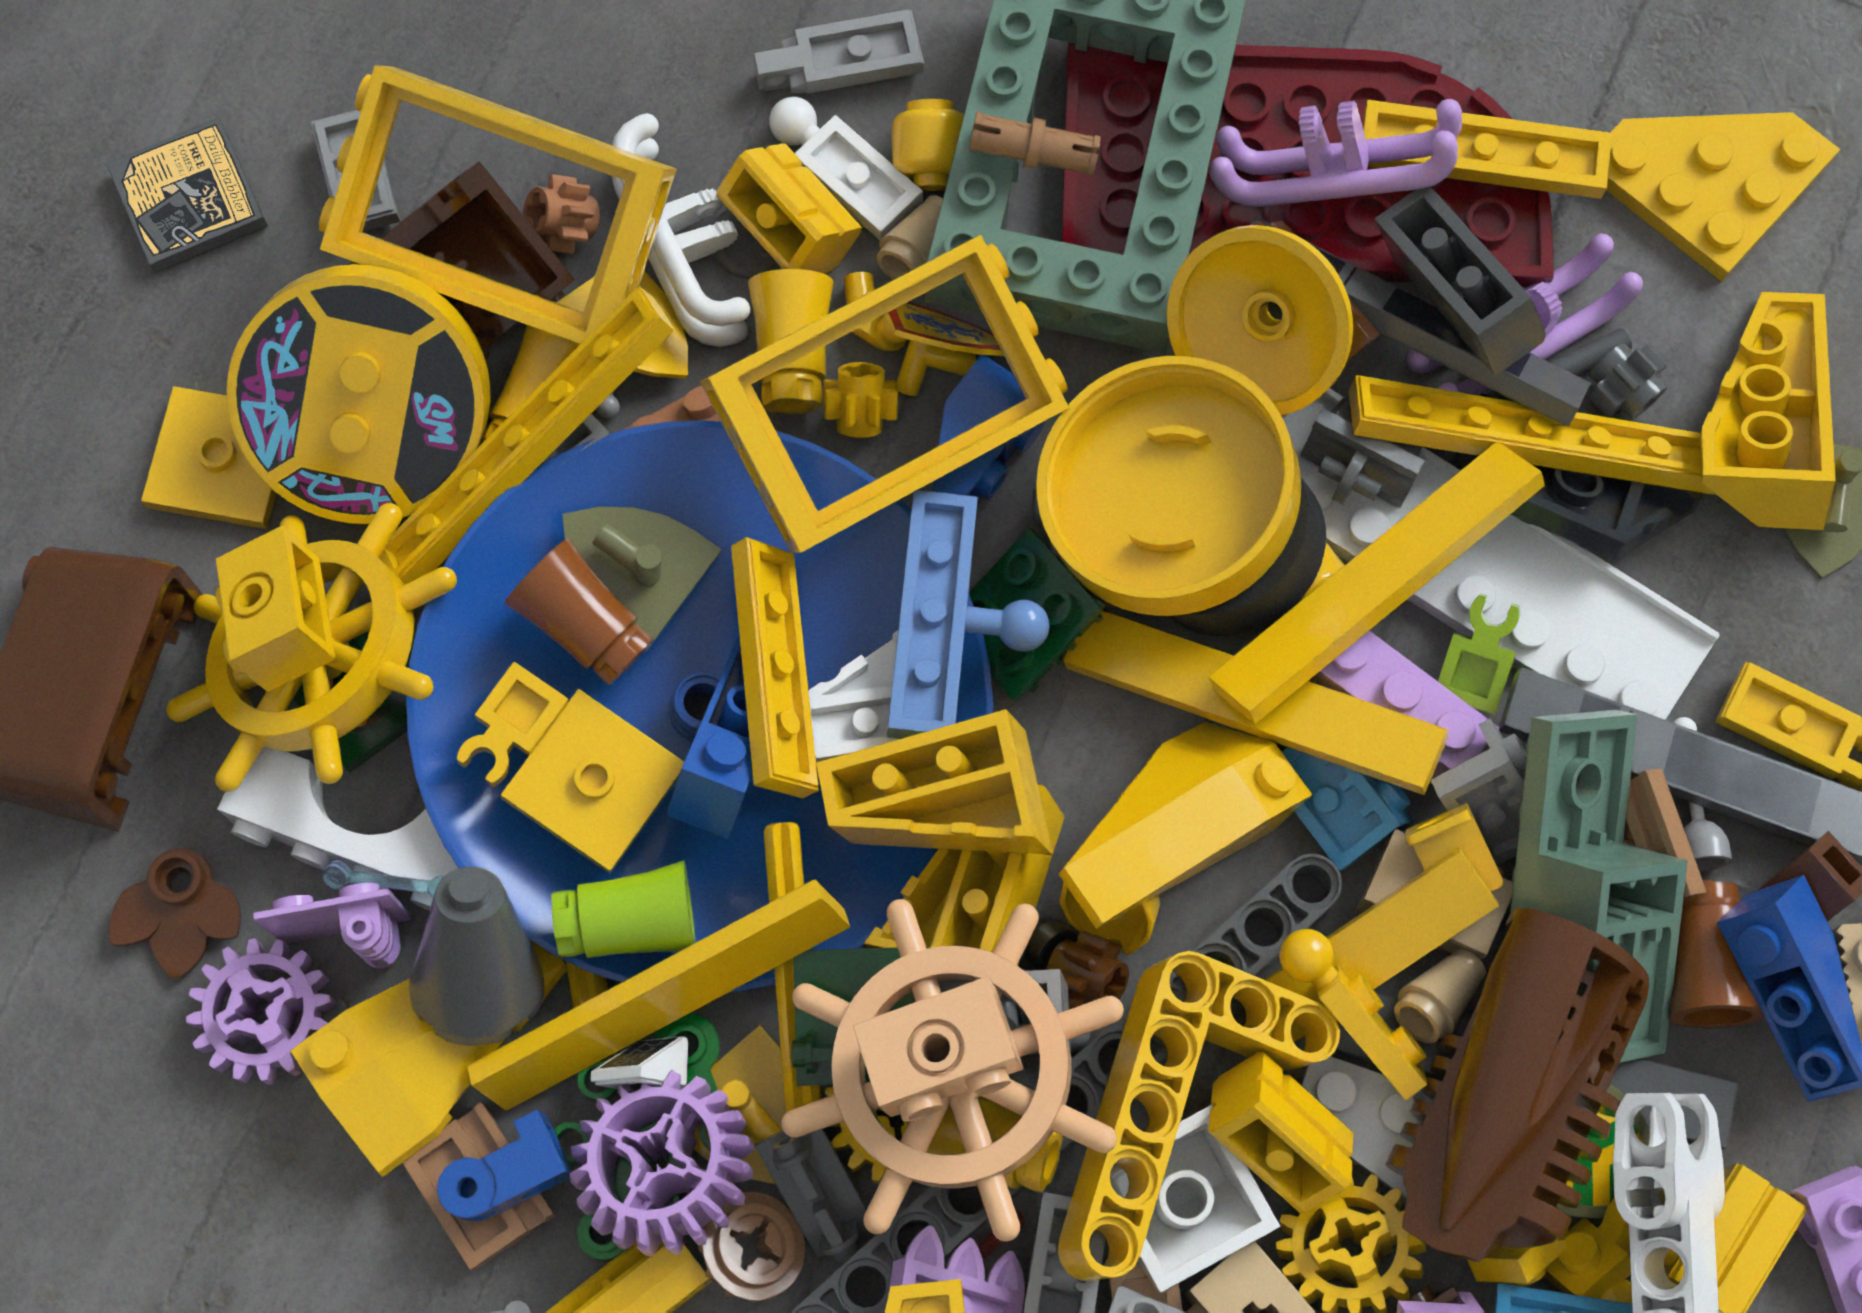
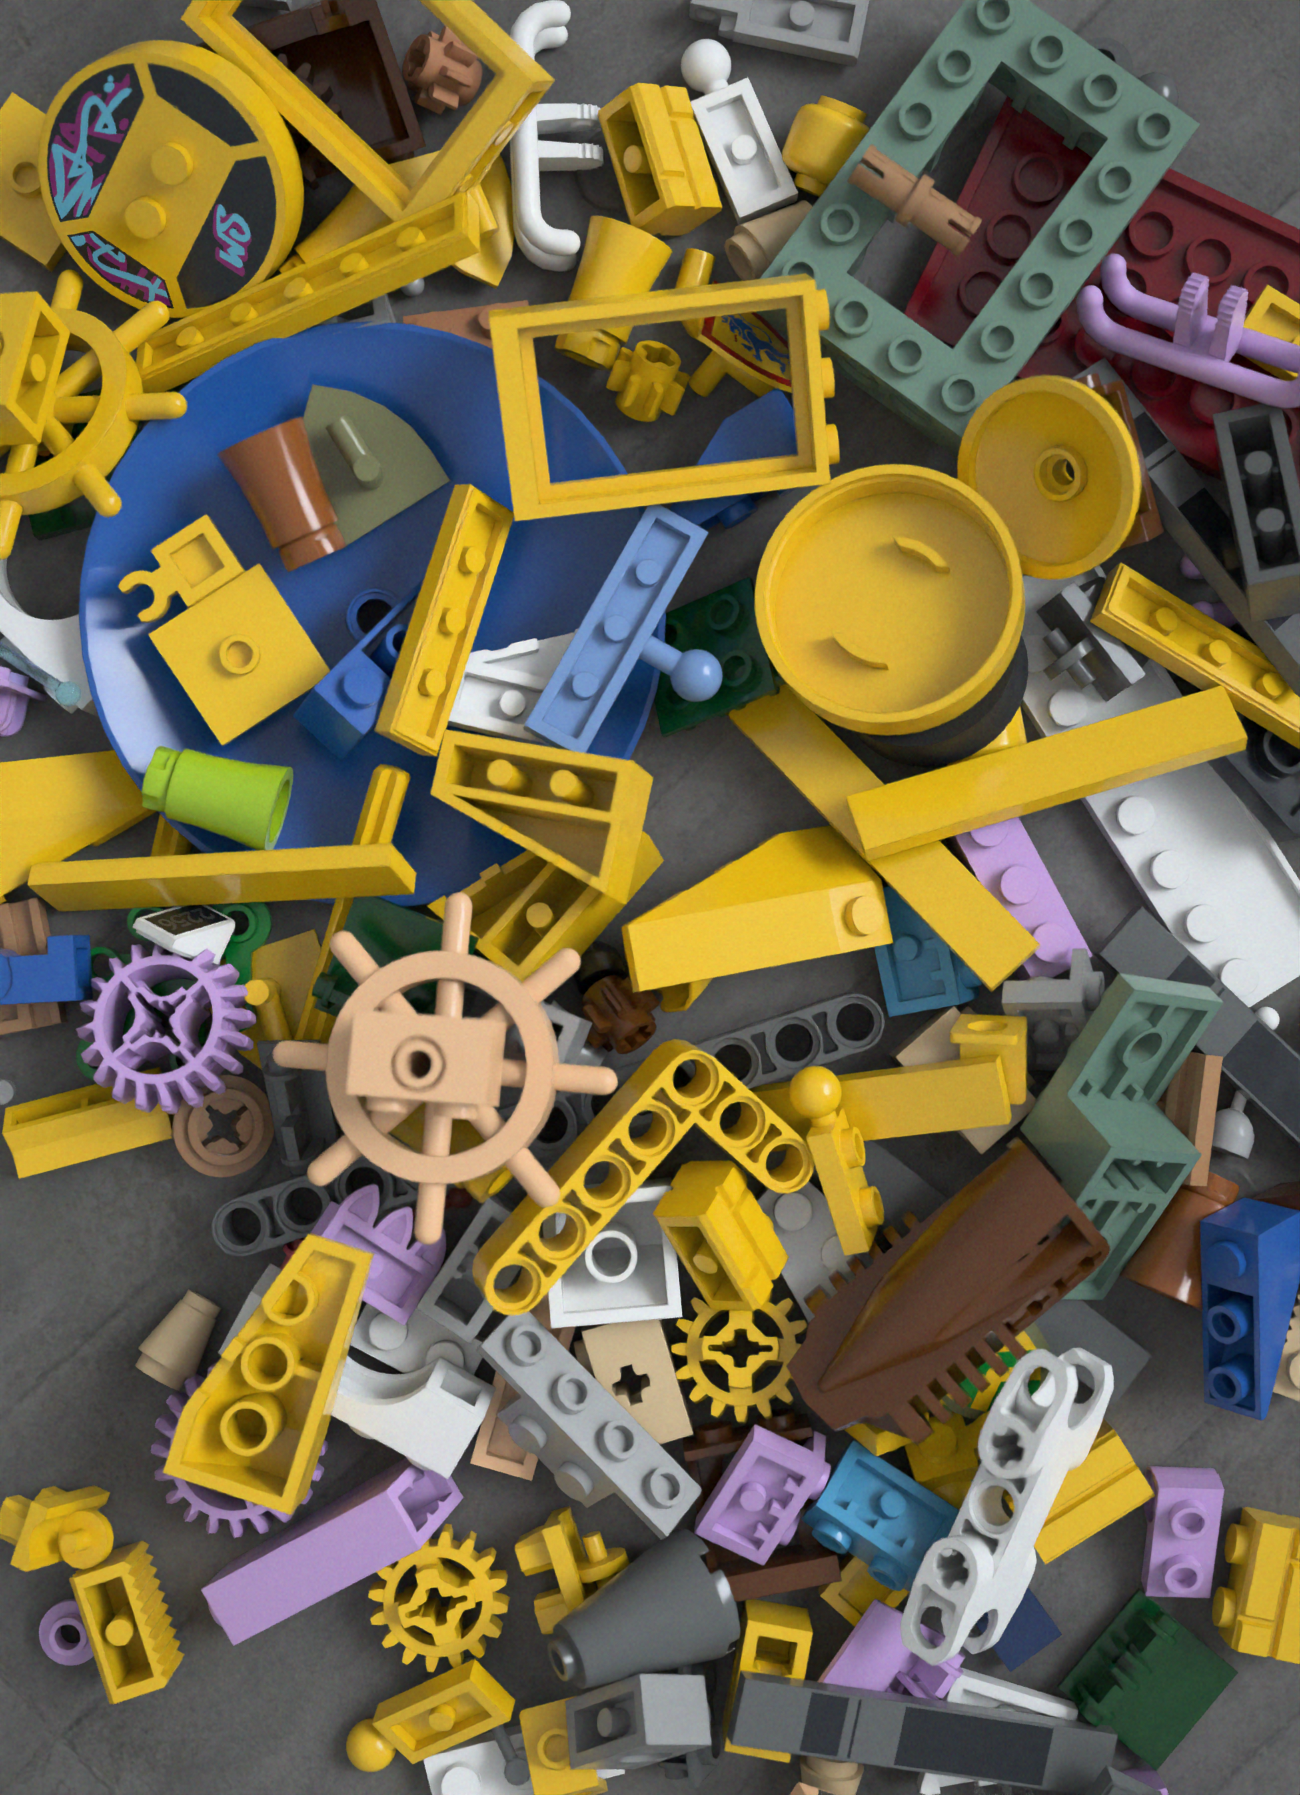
camera: 30 degrees right, 15 degrees up
(474, 962) = (68, 782): dark grey cone -> none
(1439, 996) = (921, 1171): tan cone -> none
(1477, 665) = (1106, 881): lime plate -> none

